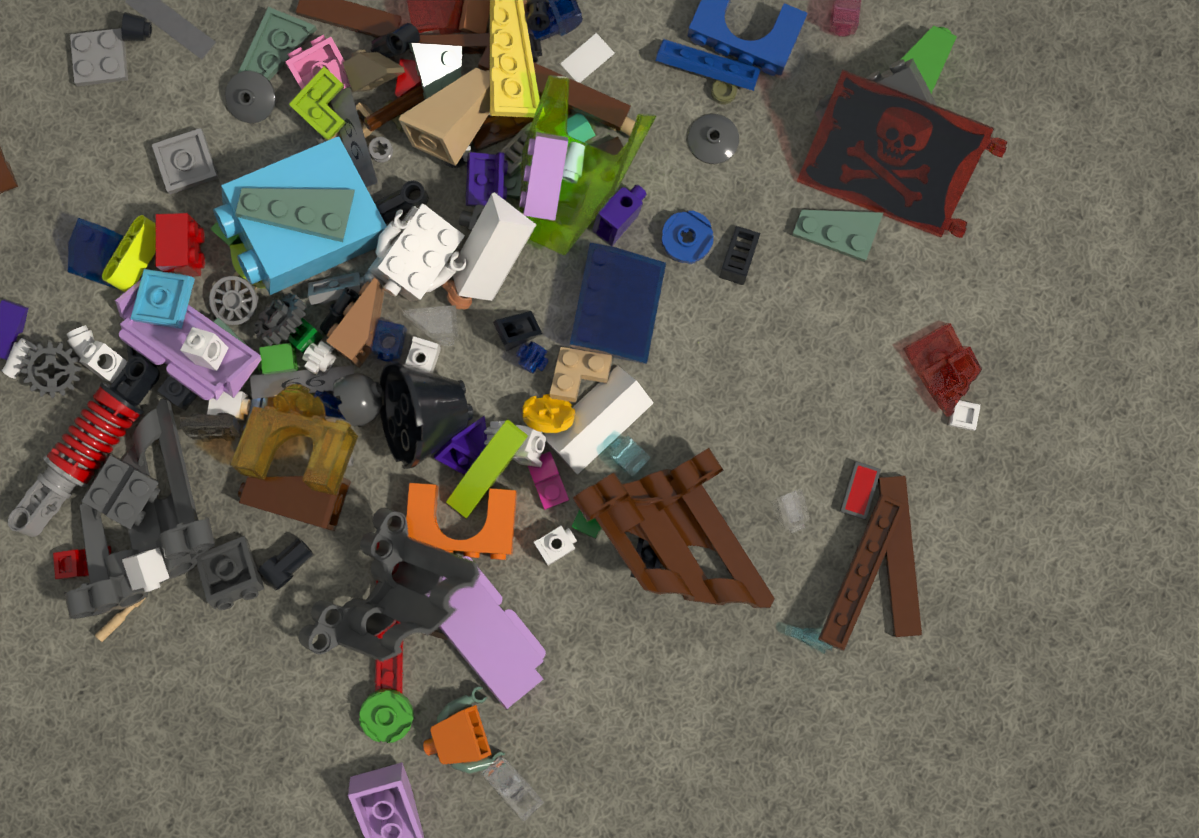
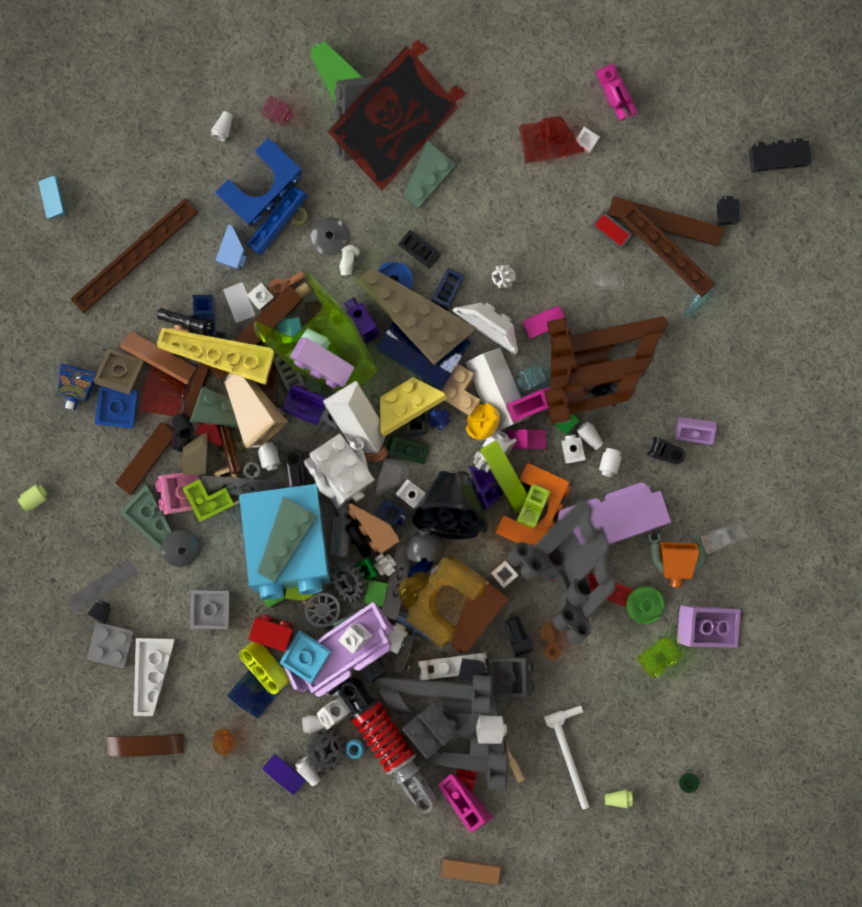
camera: 70 degrees left, 5 degrees up
(20, 238) = (224, 742): none -> clear orange rock
(41, 576) = (465, 803): none -> dark pink slope
(60, 407) = (354, 755): none -> medium azure plate
(85, 115) = (151, 665): none -> white wing
(117, 777) = (620, 799): none -> yellowish green cone
(192, 654) = (555, 721): none -> white bar
(218, 494) = (446, 666): none -> white plate
(221, 517) = (469, 667): none -> black brick
(302, 601) = (547, 634): none -> clear orange plate
(315, 746) = (662, 647): none -> clear neon green brick
(359, 514) = (504, 574): none -> white brick
(405, 163) = (269, 456): none -> white brick
(461, 518) = (533, 506): none -> lime slope
(478, 333) = (407, 449): none -> dark green slope
(535, 308) = (407, 403): none -> light yellow wing
(556, 600) = (610, 462): none -> white brick
(583, 560) = (590, 435): none -> white cone
(589, 462) = (528, 405): none -> dark pink slope
(598, 666) = (664, 451): none -> black piece
(603, 77) = (261, 297): none -> white brick
(627, 95) = (277, 286): none -> nougat plate
(641, 698) = (695, 430): none -> lavender slope
(648, 290) = (424, 322): none -> dark tan wing
(649, 22) = (231, 250): none -> light blue slope
(679, 377) = (490, 324): none -> white wedge
(689, 169) = (347, 260): none -> white arm
(690, 316) = (453, 274): none -> dark blue slope
(700, 437) = (538, 324): none -> dark pink slope
(746, 372) = (503, 276): none -> white gear
(945, 633) = (728, 211): none -> black brick
(1041, 429) = (616, 92): none -> dark pink plate
(1046, 675) = (780, 155): none -> black brick

